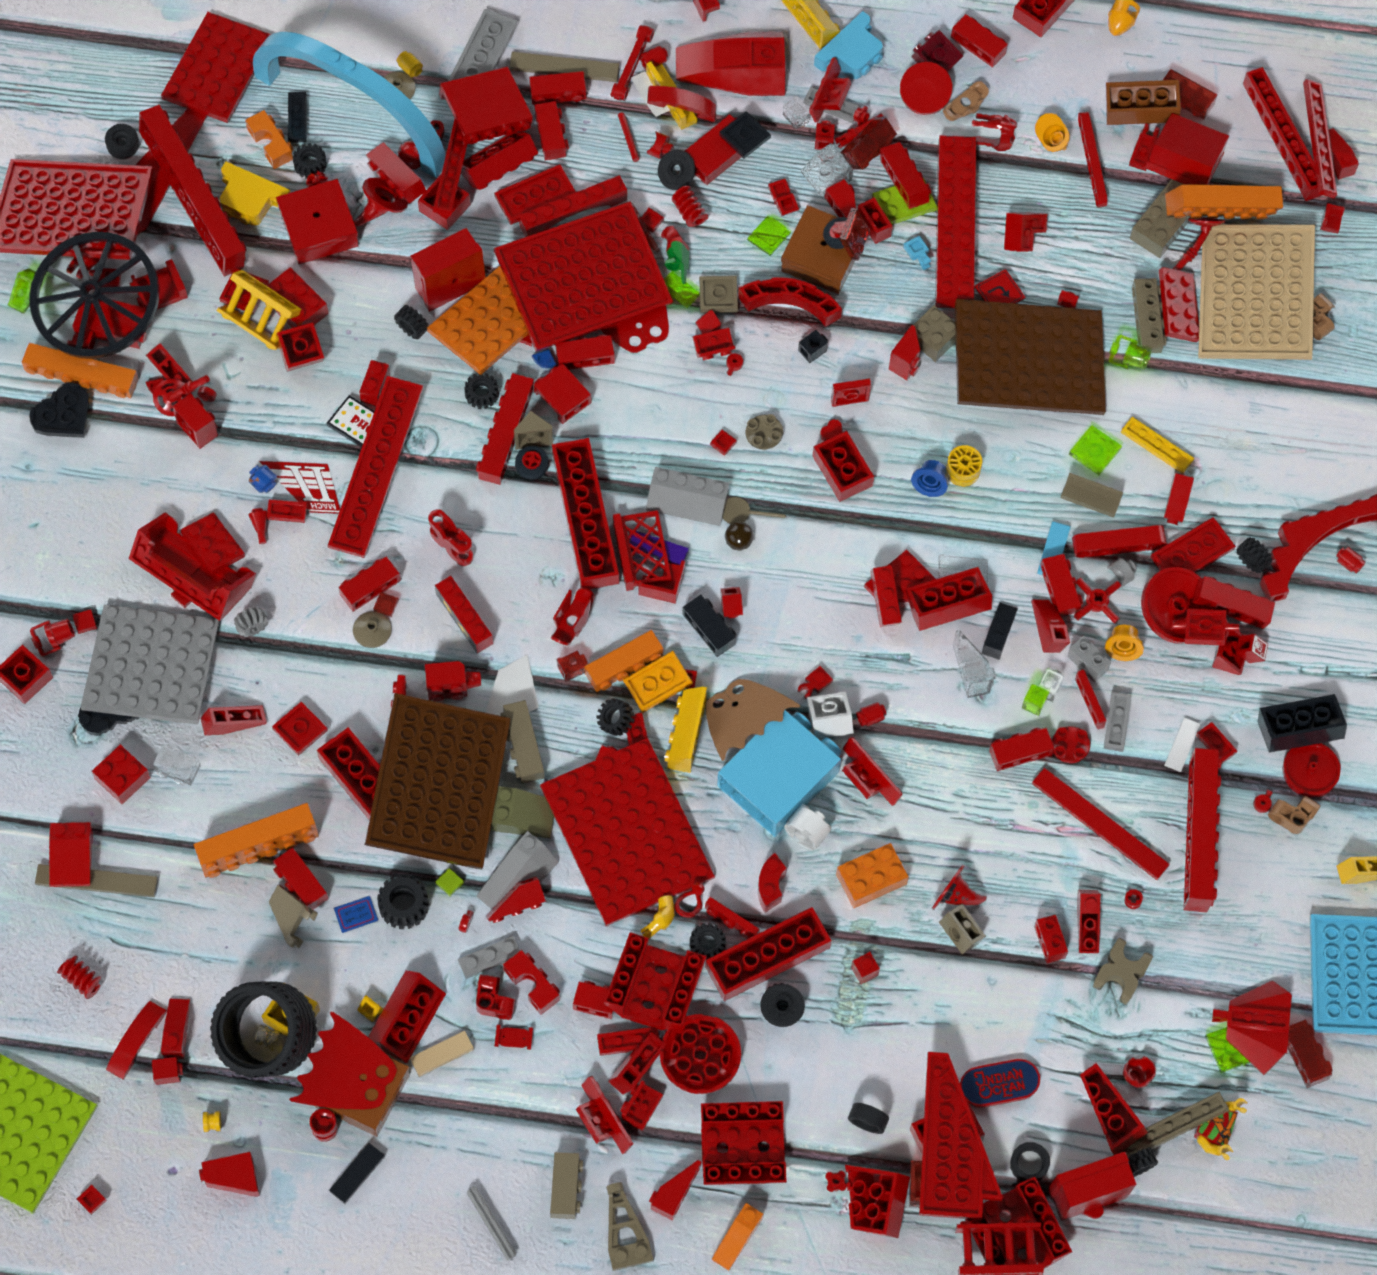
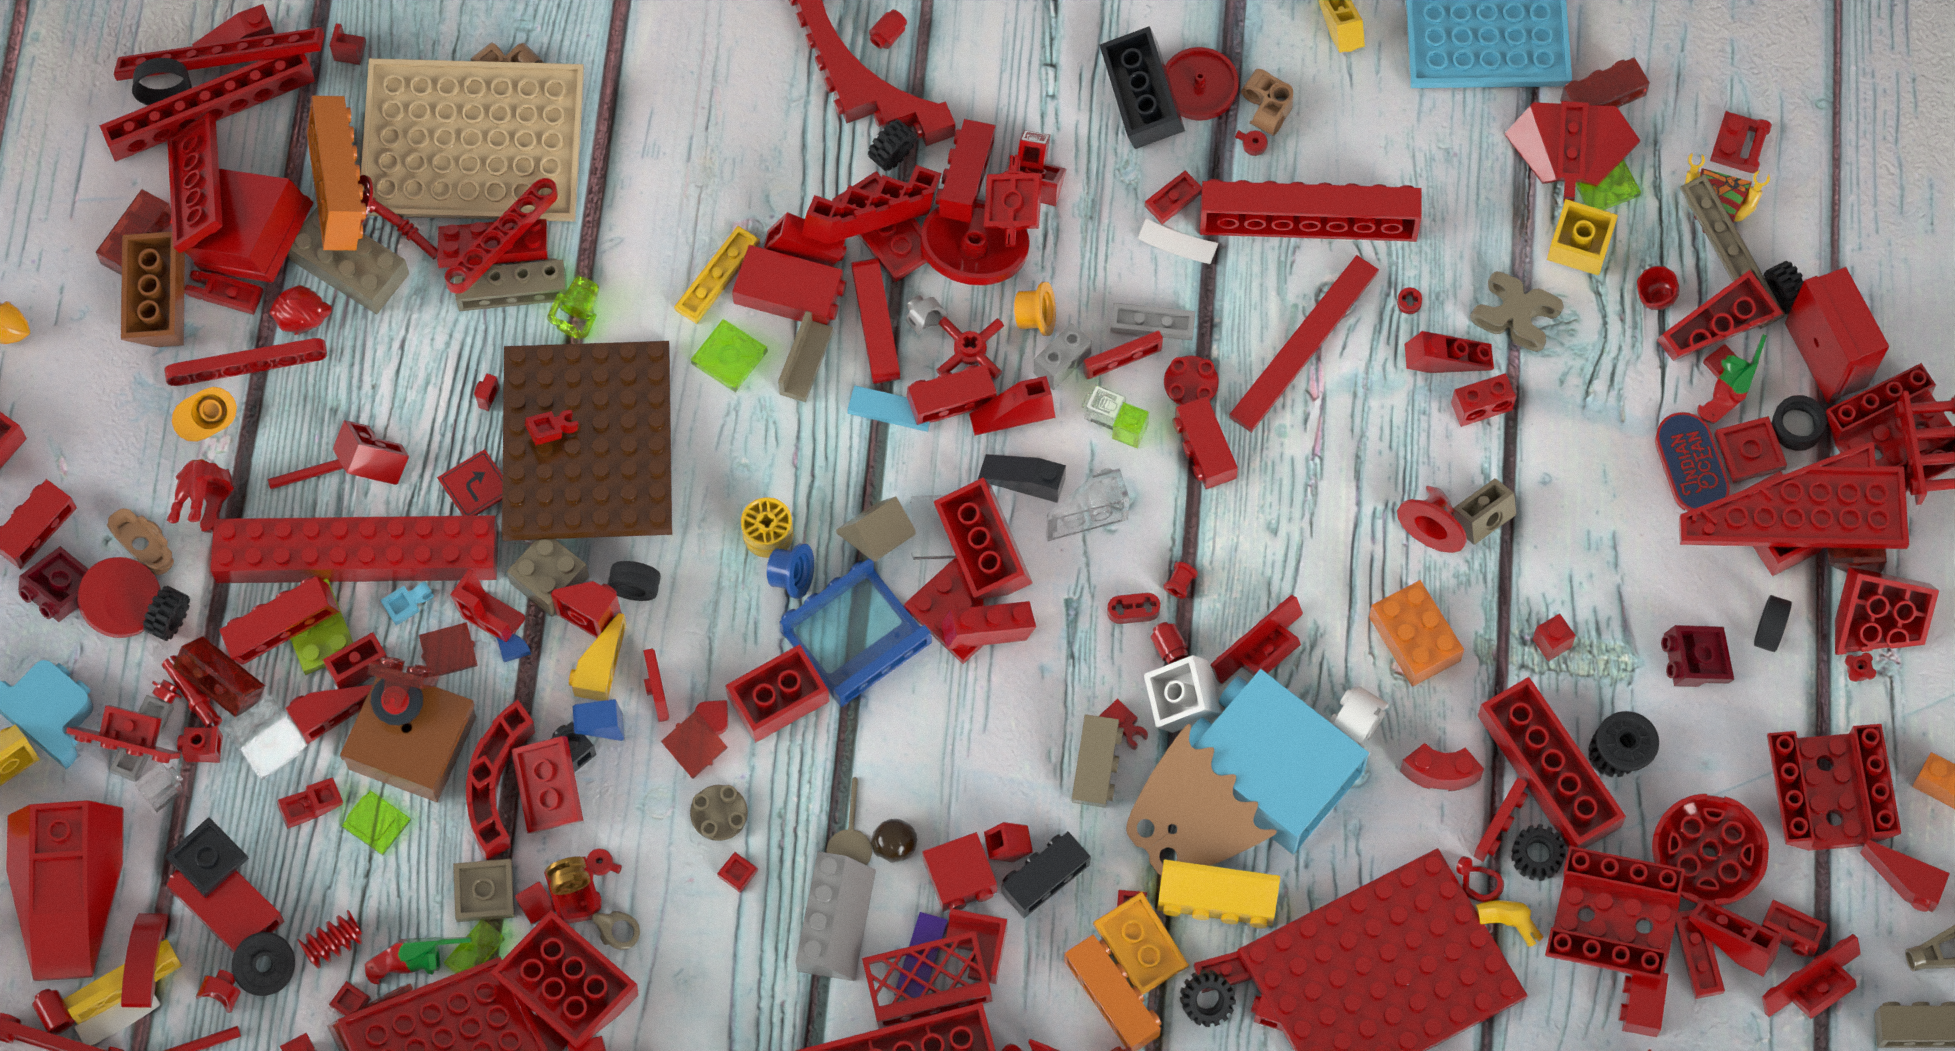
camera: 90 degrees left, 0 degrees up
(651, 335) = (566, 980): none -> red slope
(692, 362) = (605, 923): none -> dark tan piece
(712, 571) = (960, 872): none -> red brick
(720, 335) = (567, 875): none -> pearl gold wheel
(785, 328) = (547, 784): none -> red plate
(786, 659) = (1097, 761): none -> dark tan brick
(812, 419) = (694, 744): none -> clear red piece
(828, 360) = (599, 719): none -> blue slope
(848, 1066) = (1697, 655): none -> dark red plate
(870, 363) = (598, 664): none -> yellow slope
(885, 278) = (448, 649): none -> clear red piece
(885, 314) = (513, 648): none -> blue tile
(888, 519) = (854, 632): none -> clear light blue panel
(904, 695) = (1133, 608): none -> red beam
(911, 295) = (485, 610): none -> red panel
(912, 113) = (166, 613): none -> black tyre
(918, 725) = (1180, 580): none -> red bush
(926, 382) = (634, 580): none -> black tyre
(958, 532) = (878, 529): none -> dark tan slope
(1009, 1125) = (1750, 449): none -> red plate
(1011, 192) = (304, 474): none -> red bar
(1034, 326) = (547, 428): none -> red plate
(1059, 1115) = (1731, 385): none -> animal
(1081, 1115) = (1713, 361): none -> red tile
(1129, 189) = (299, 310): none -> red hair
(1145, 487) = (788, 286): none -> red brick
(1176, 306) = (498, 233): none -> red beam
(1181, 1020) = (1582, 237): none -> yellow brick
(1194, 525) = (867, 211): none -> red brick
(1218, 121) = (194, 183): none -> red plate
(1267, 1145) = (1731, 141): none -> red plate
(1298, 104) = (159, 65): none -> black tyre

